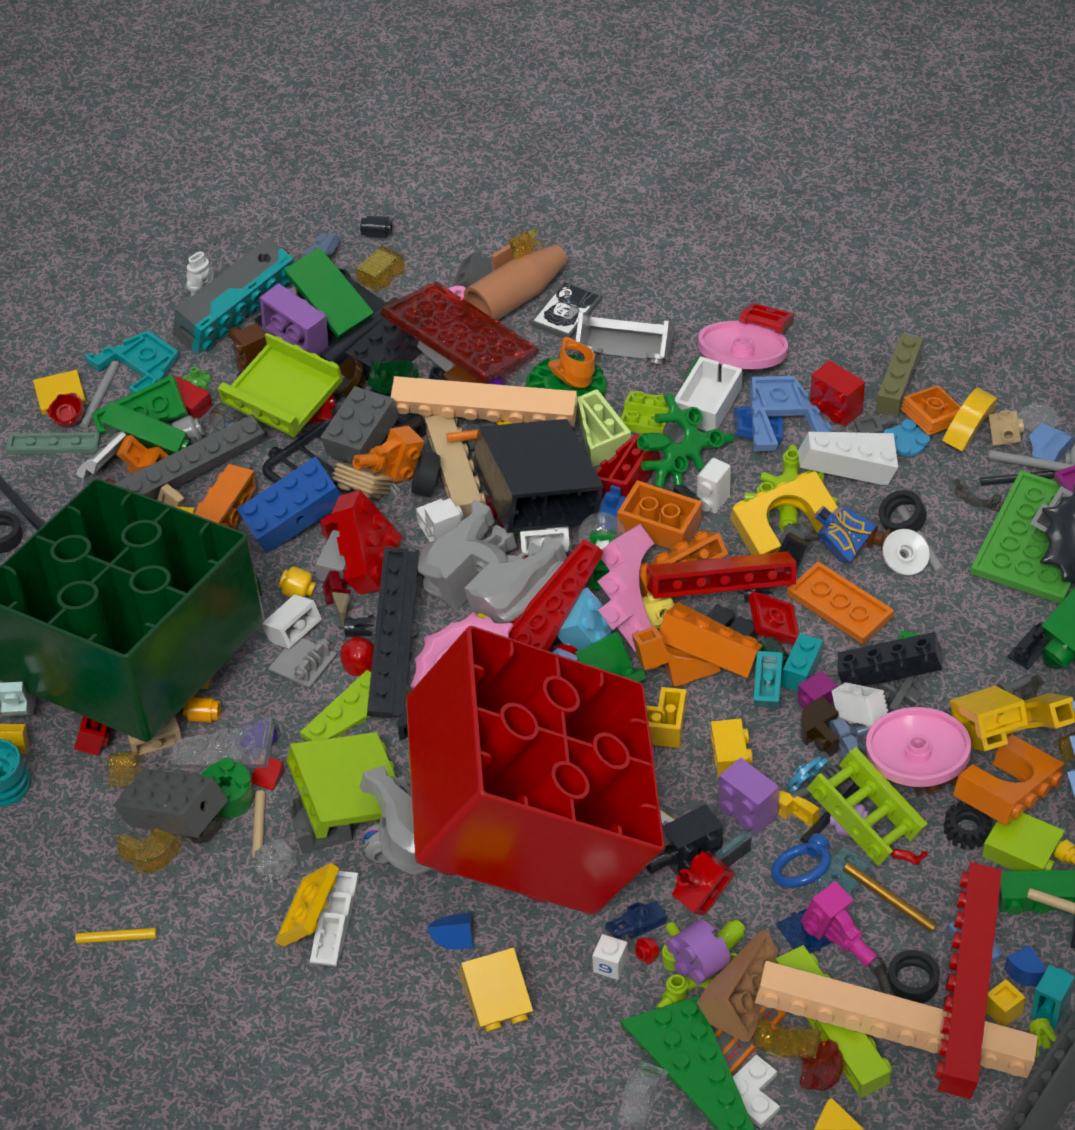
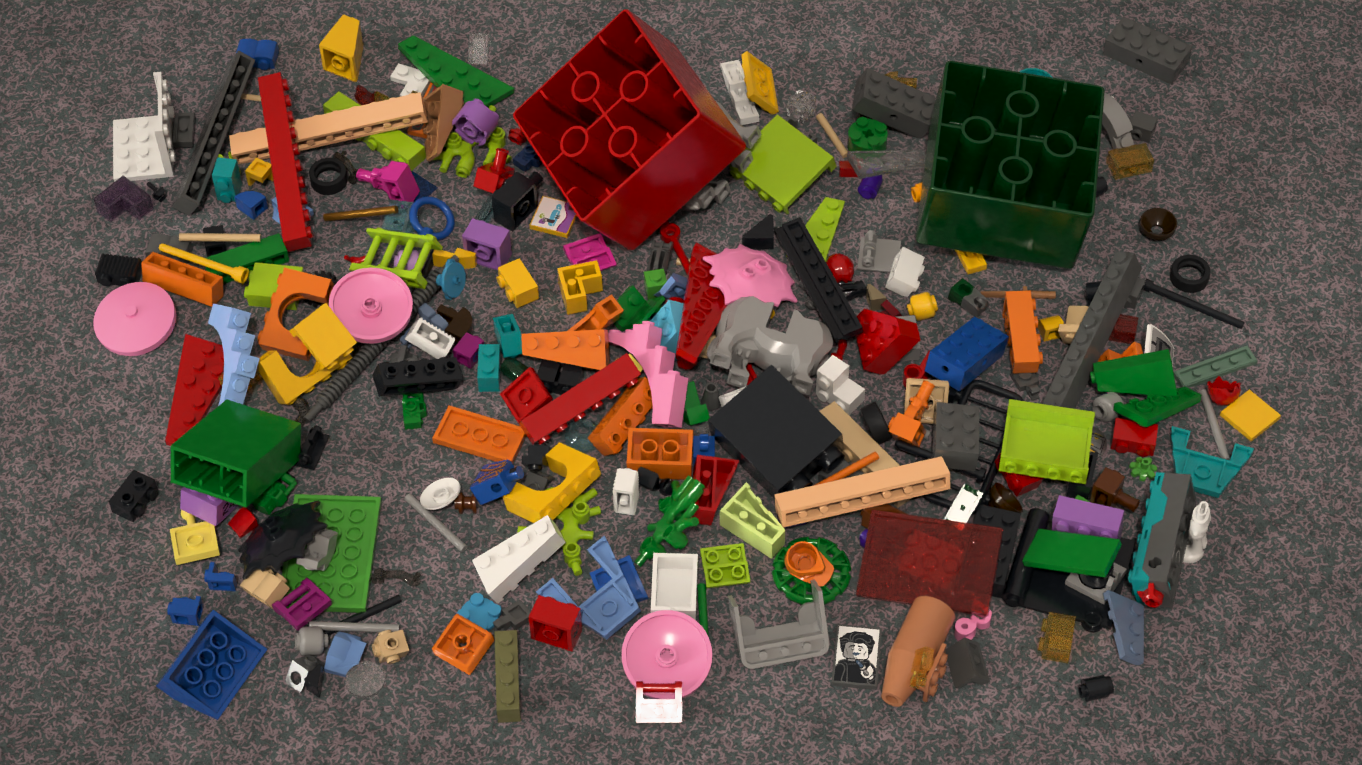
camera: 155 degrees right, 5 degrees up
(117, 935) = (878, 41): yellow bar -> none
(897, 499) = (457, 516): black tyre -> none
(969, 418) = (420, 645): yellow arch -> none

